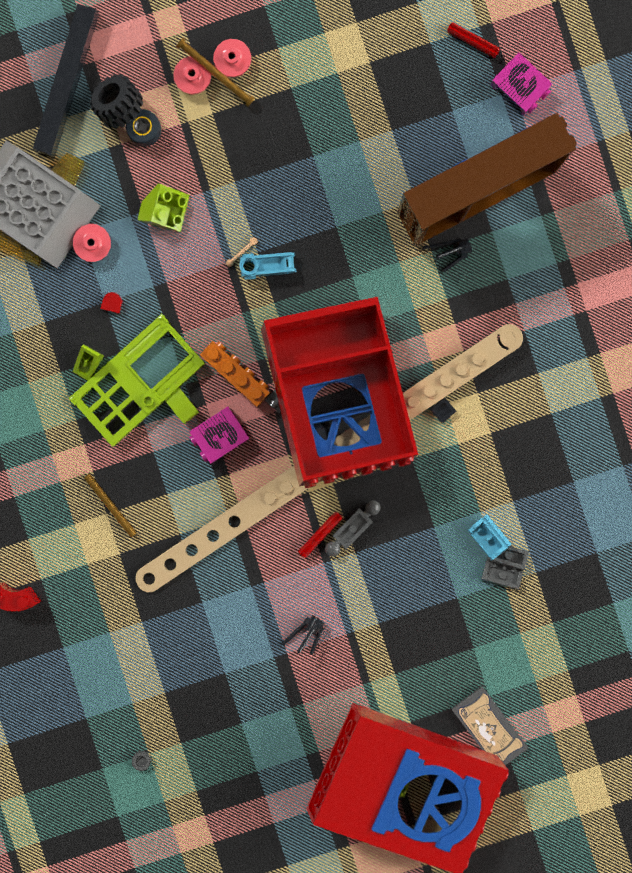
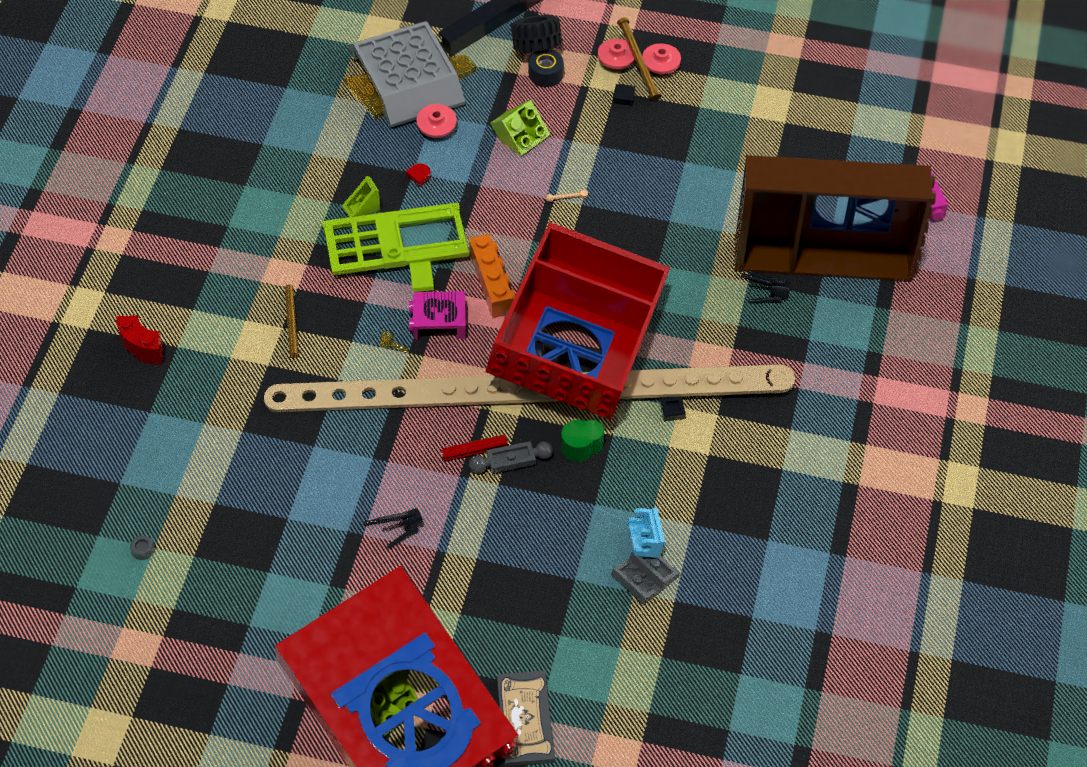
camera: 30 degrees right, 35 degrees down
(193, 479) = (386, 342): none -> clear yellow hand
(223, 114) = (624, 94): none -> black tile
(267, 265) = (583, 212): medium azure piece -> none
(395, 483) = (582, 439): none -> green piece
(473, 40) = (891, 146): red axle -> none

